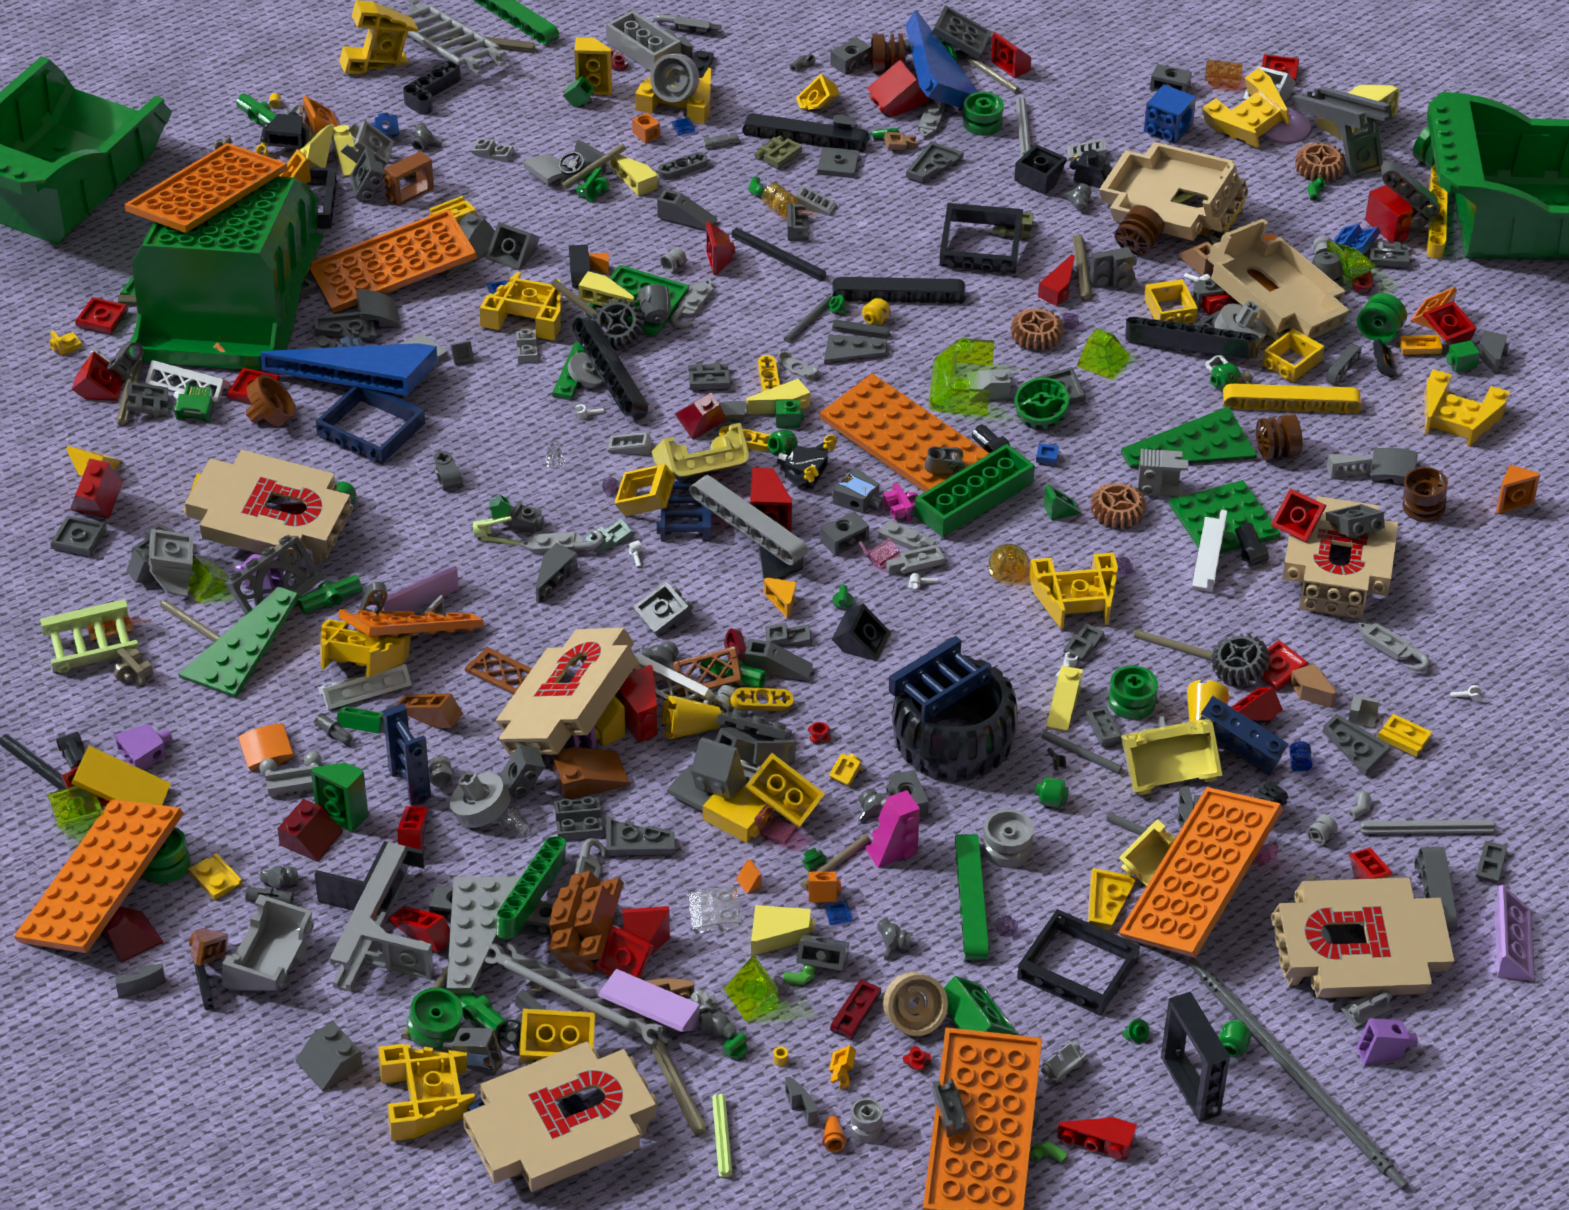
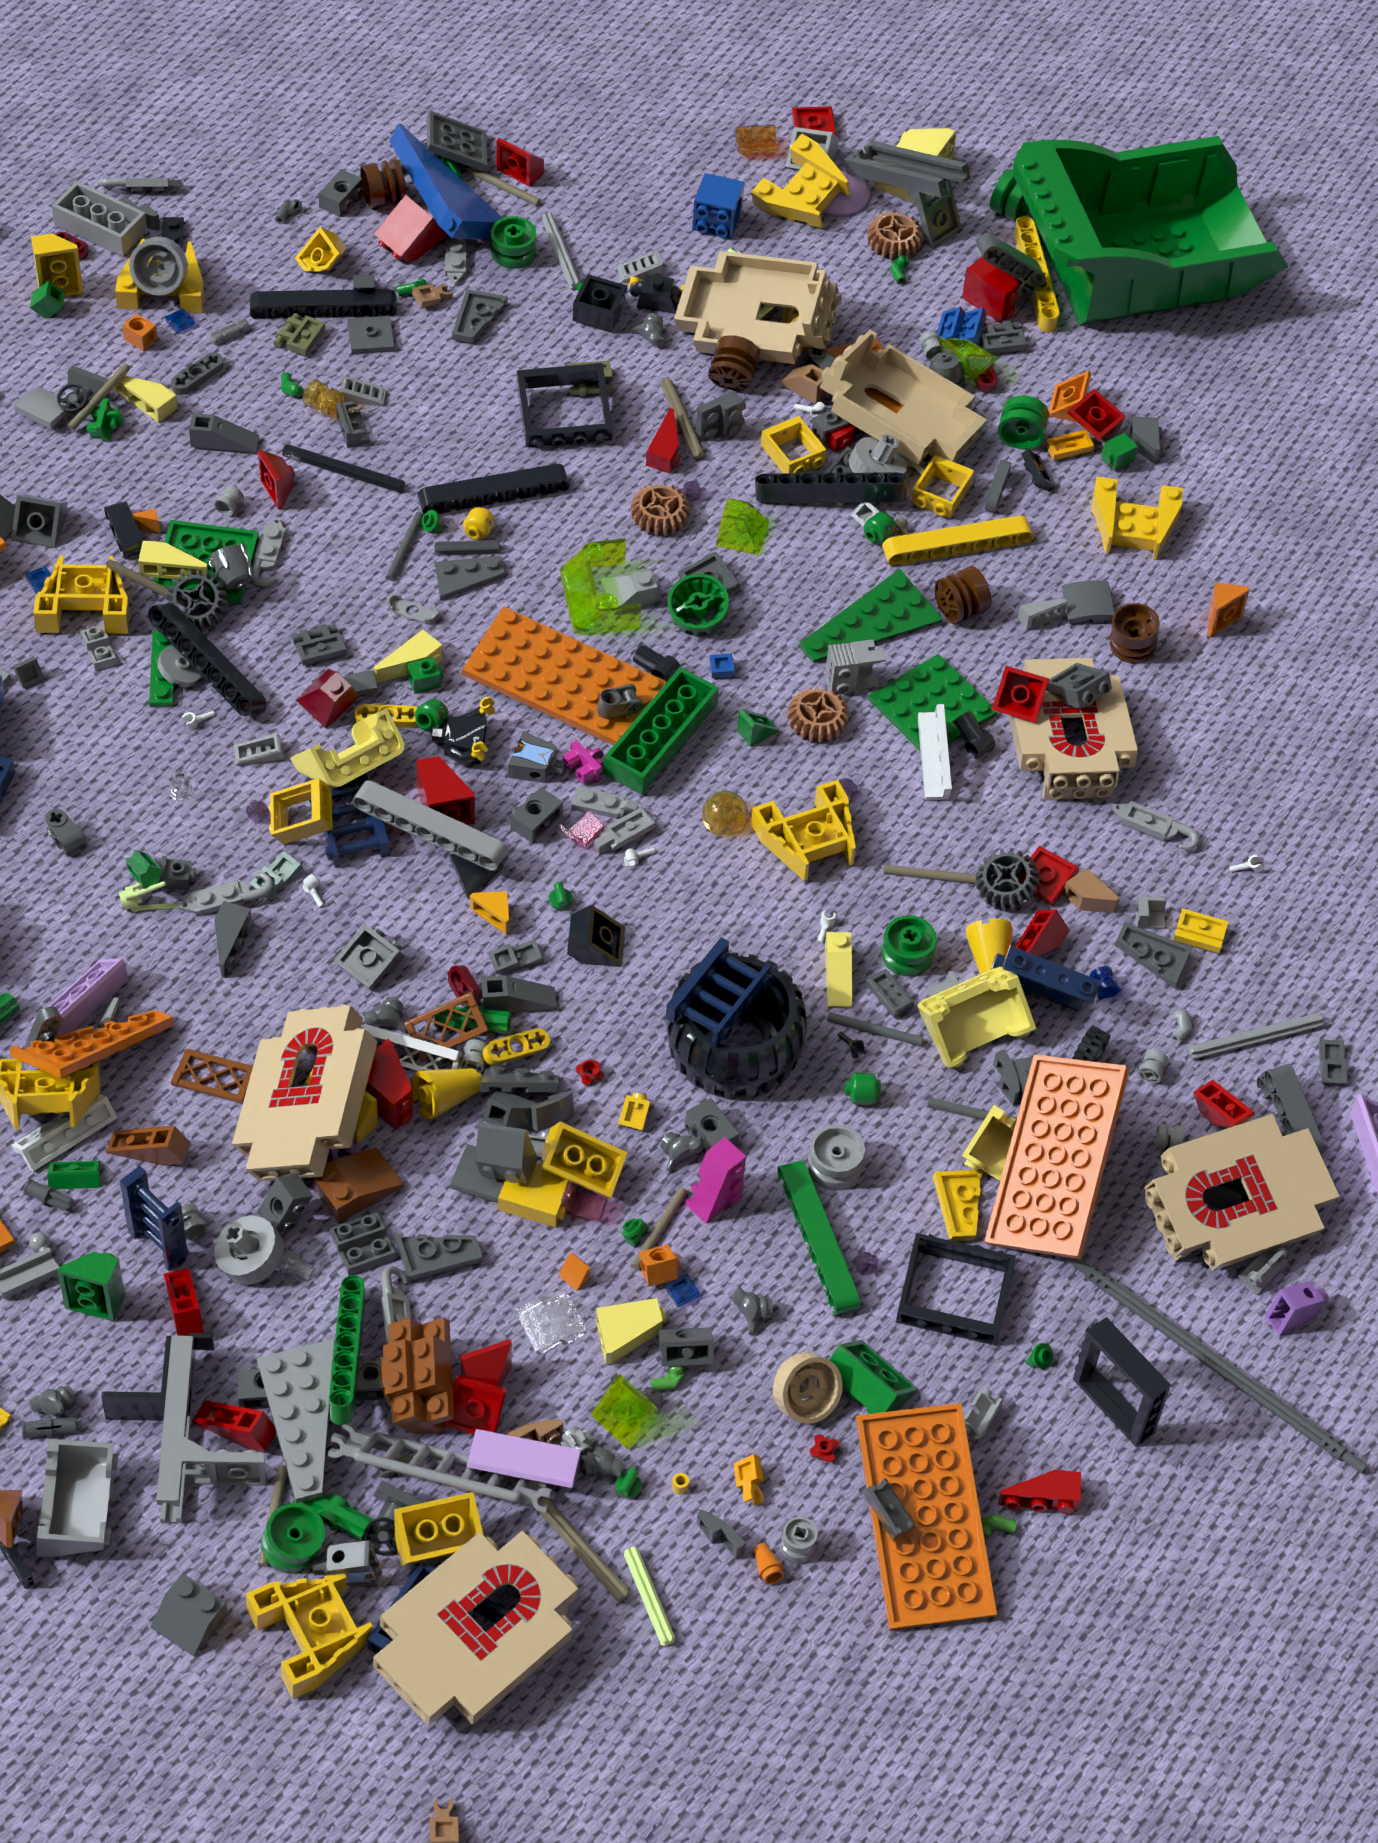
camera: 20 degrees left, 10 degrees up
(308, 830) = (67, 1334): dark red slope -> none
(771, 371) = (386, 622): yellow beam -> none
(855, 1008) = (741, 1404): dark red plate -> none
(1084, 643) = (835, 892): dark grey slope -> none
(1170, 77) = (702, 159): dark grey brick -> none
(1235, 1037) = (1145, 1338): green head -> none

